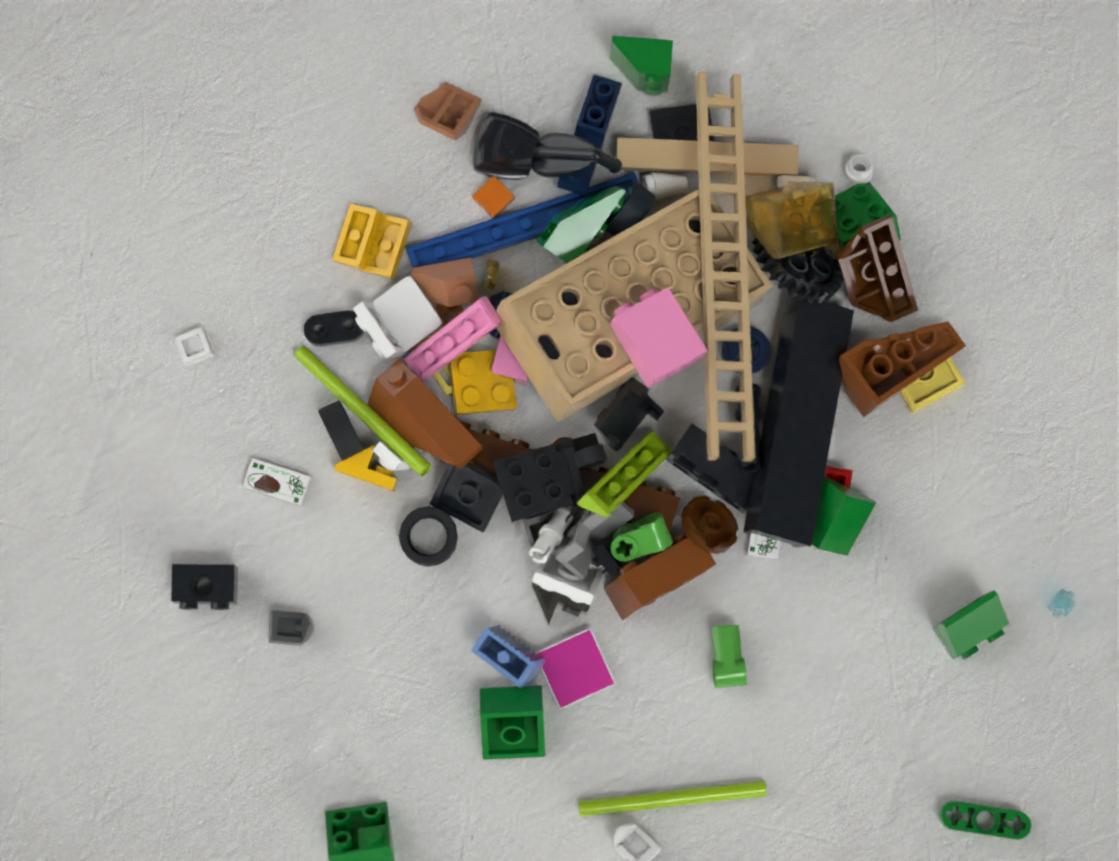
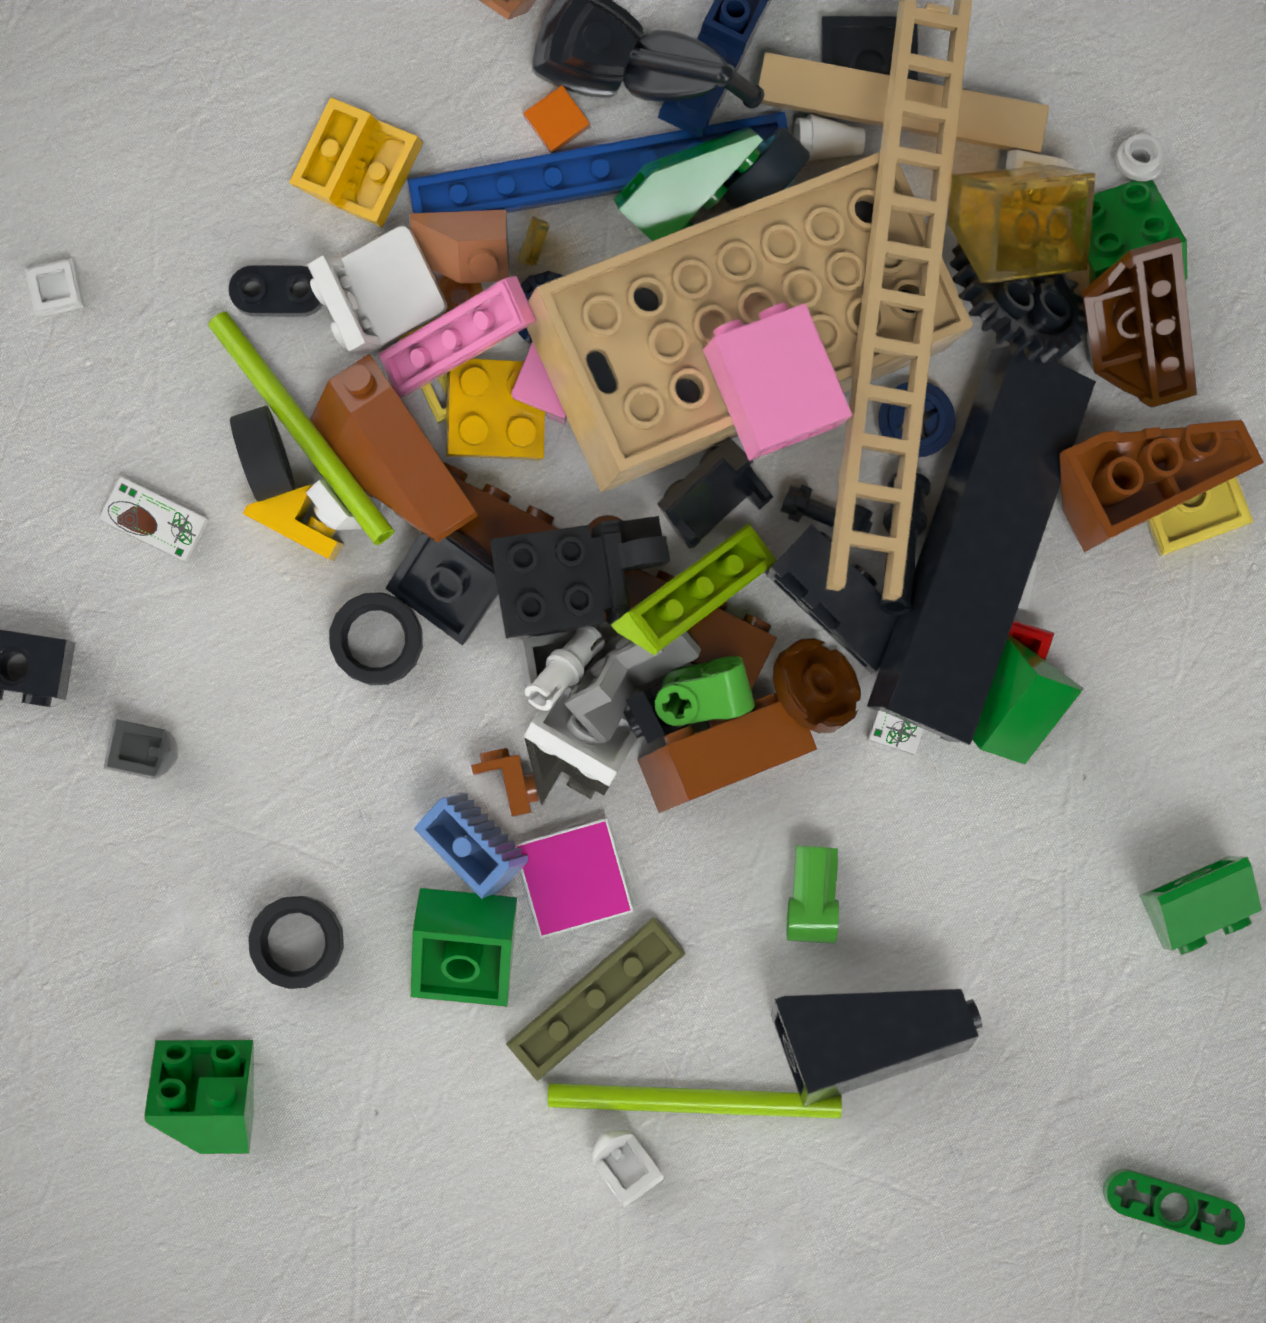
camera: 10 degrees right, 5 degrees up
(382, 732) = (259, 942): none -> black tyre
(533, 616) = (519, 786): none -> dark orange bracket
(600, 743) = (595, 998): none -> olive tile
(681, 412) = (799, 504): none -> black bar
(776, 739) = (867, 1037): none -> black slope

